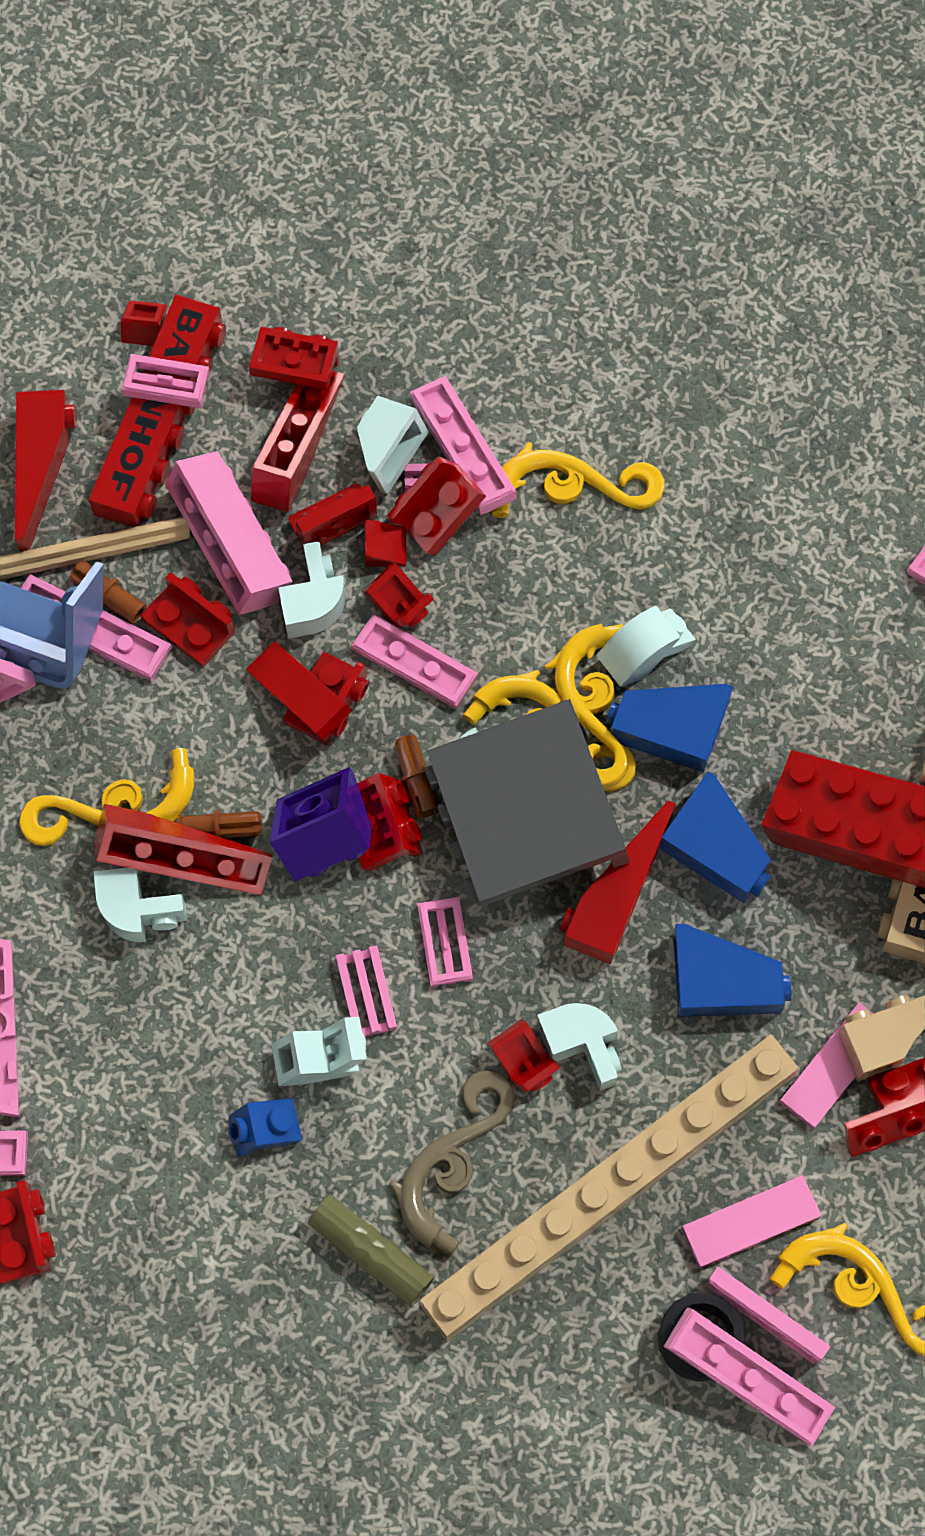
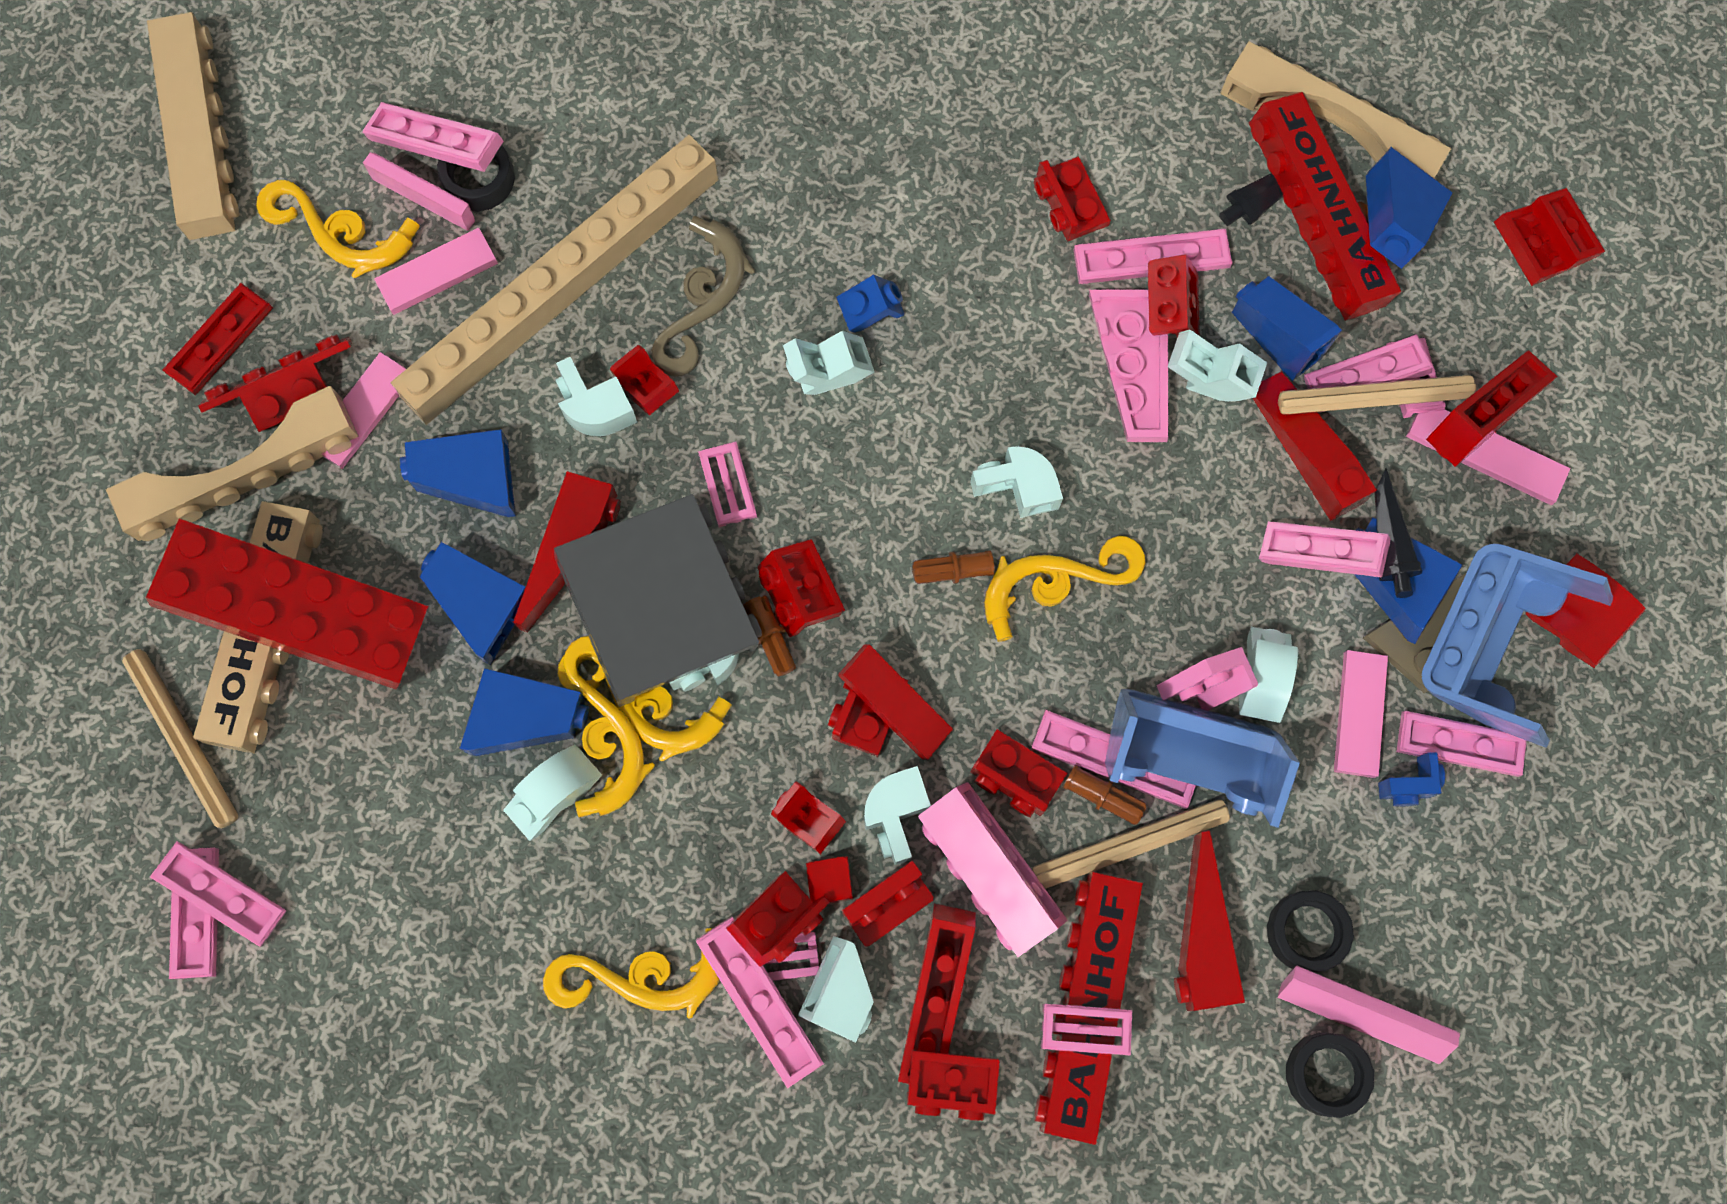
camera: 170 degrees right, 5 degrees up
(142, 322) = (1126, 1121): red slope -> none
(178, 851) = (1001, 531): red slope -> none
(321, 825) = (855, 570): dark purple slope -> none
(357, 957) = (784, 402): bright pink tile -> none
(371, 1250) = (765, 212): olive axle -> none
(414, 661) = (785, 757): bright pink tile -> none

